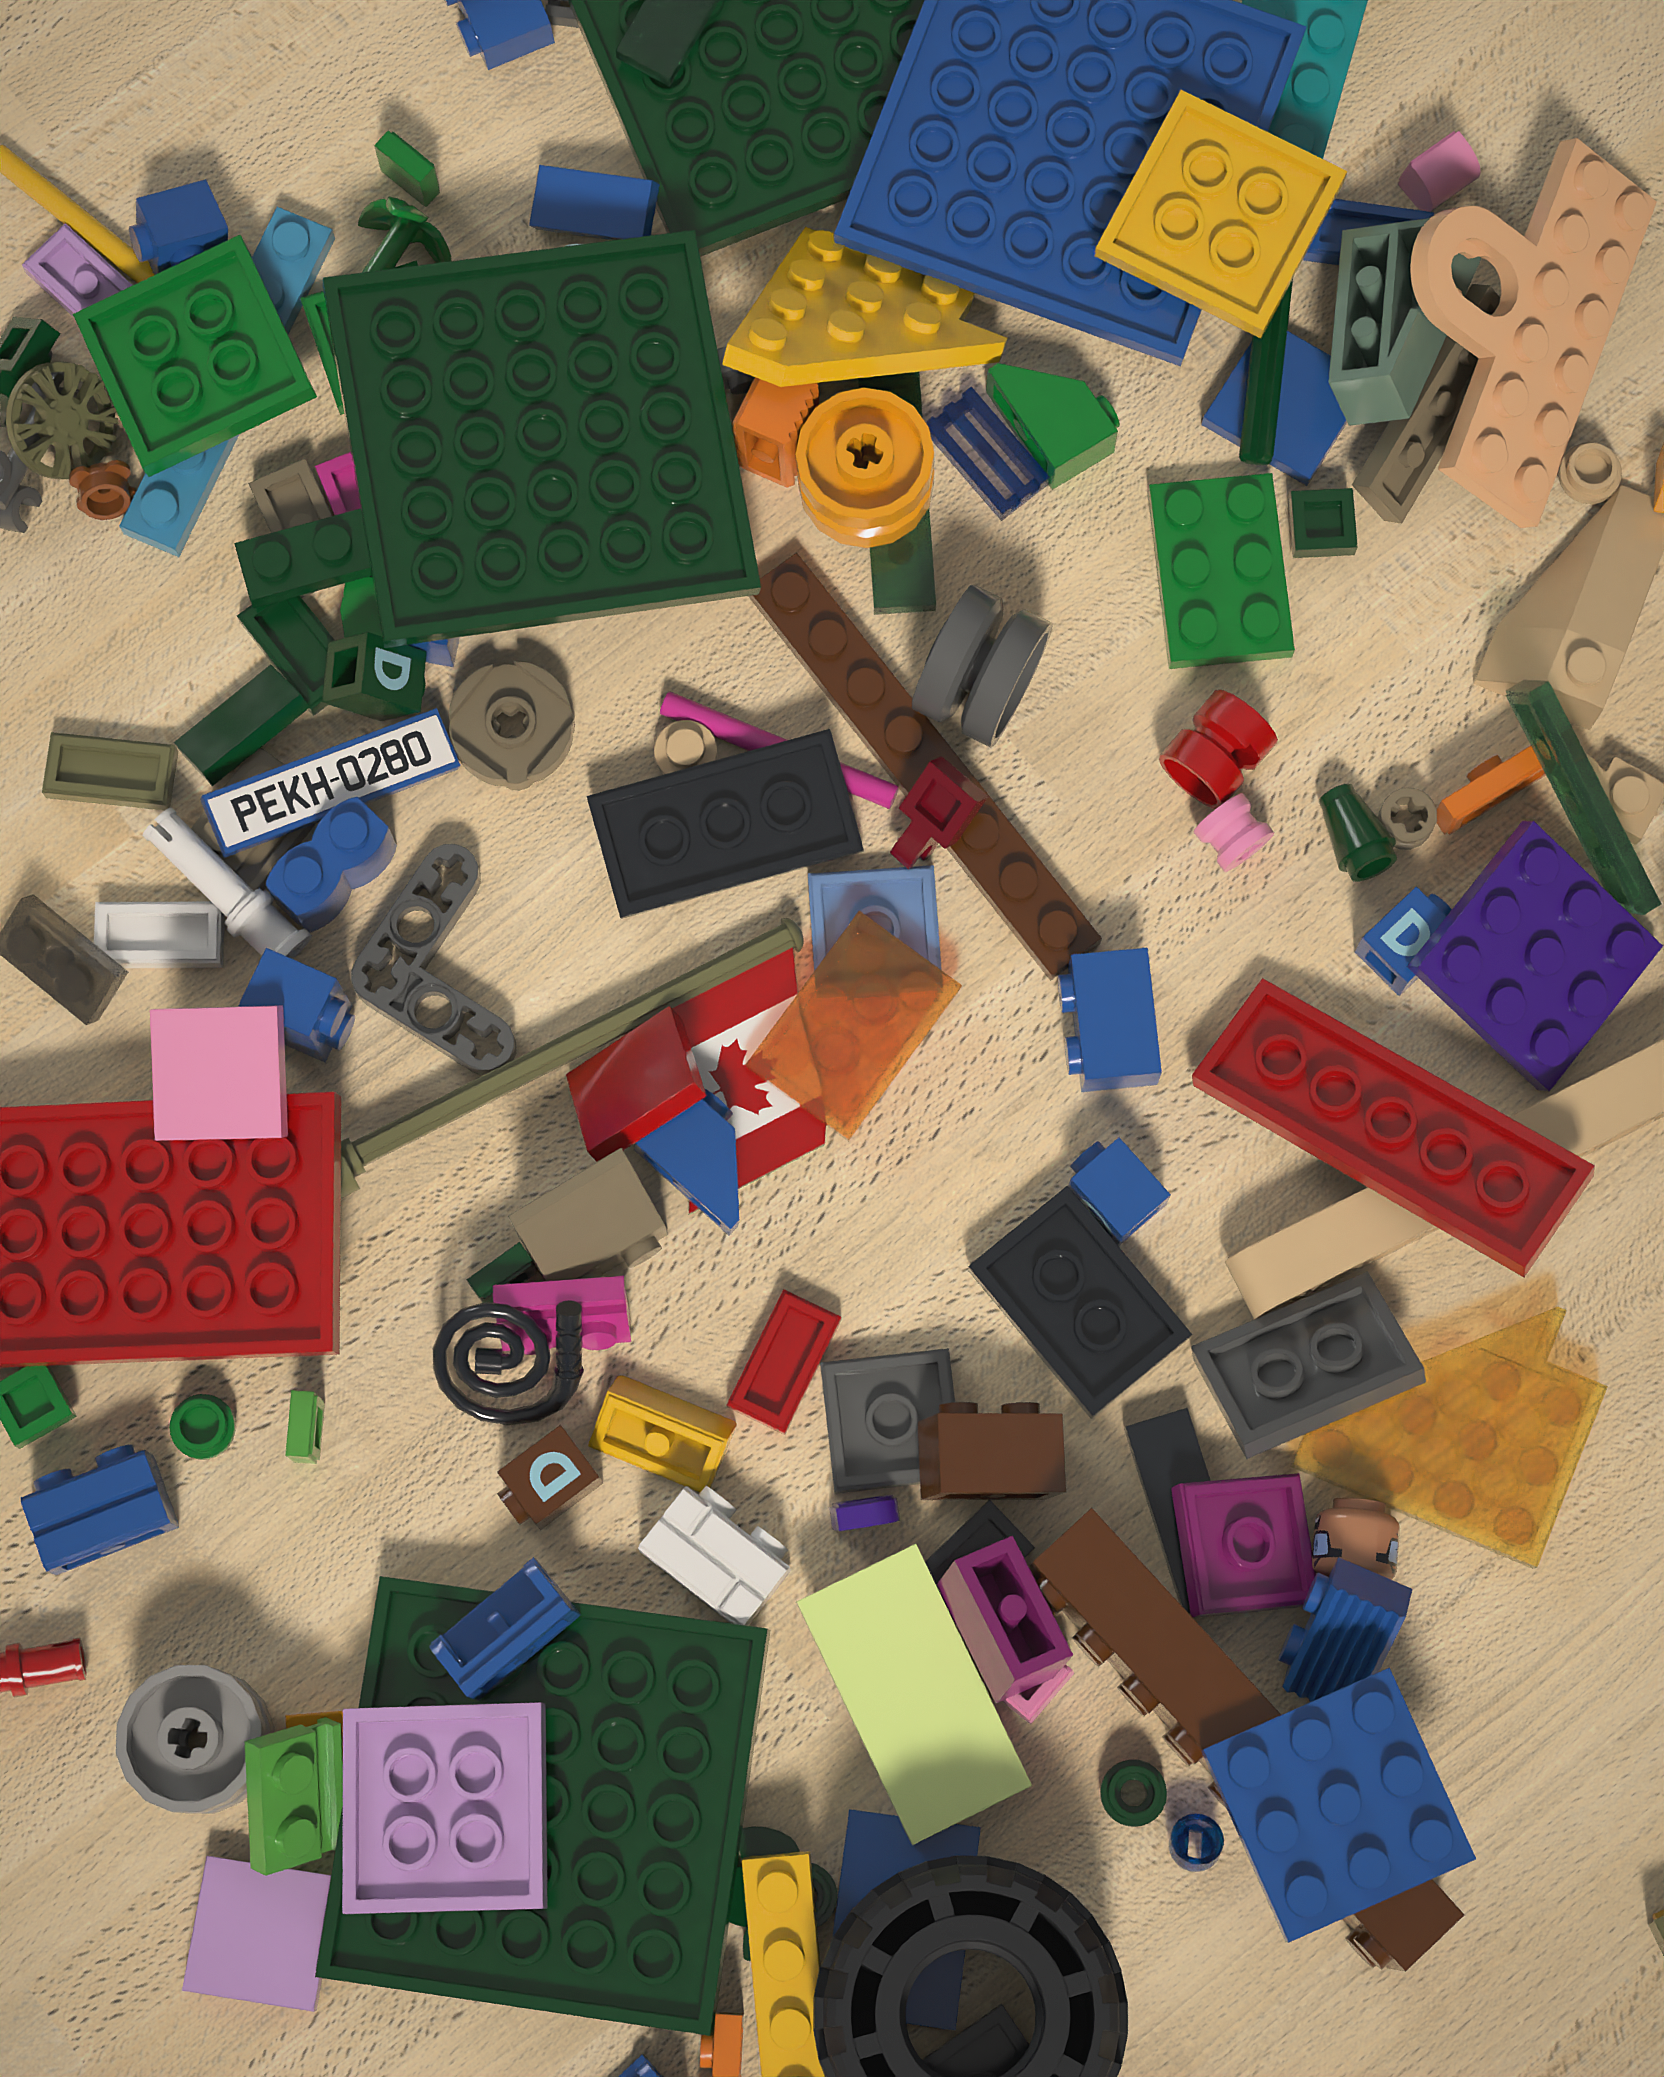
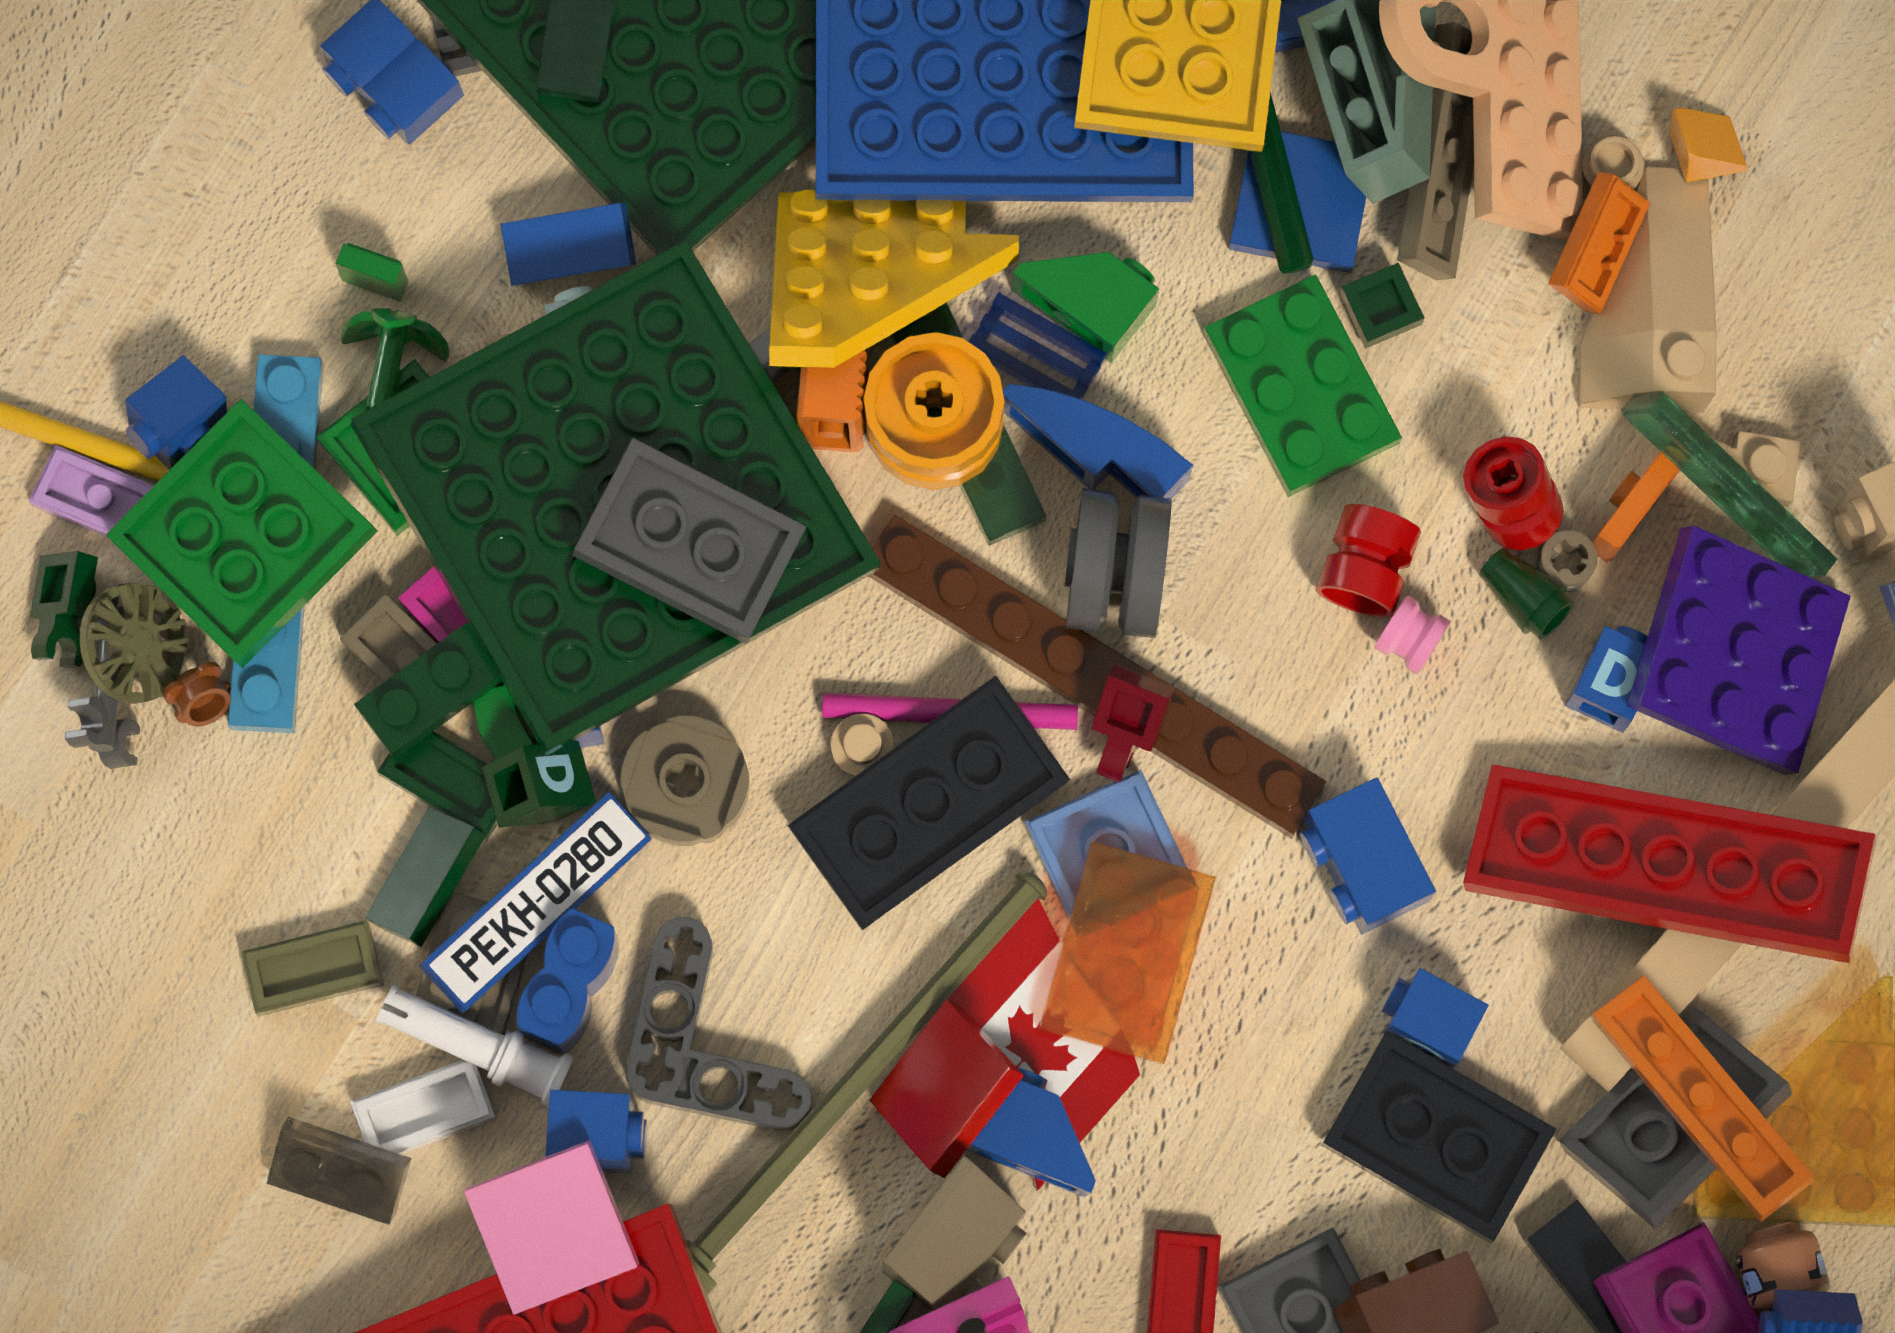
camera: 25 degrees left, 0 degrees up
(587, 497) = (689, 540): none -> dark grey plate
(1008, 552) = (1097, 442): none -> blue slope
(1336, 1353) = (1703, 1098): none -> orange plate
(1377, 734) = (1513, 493): none -> red wheel
(1548, 536) = (1599, 242): none -> orange plate

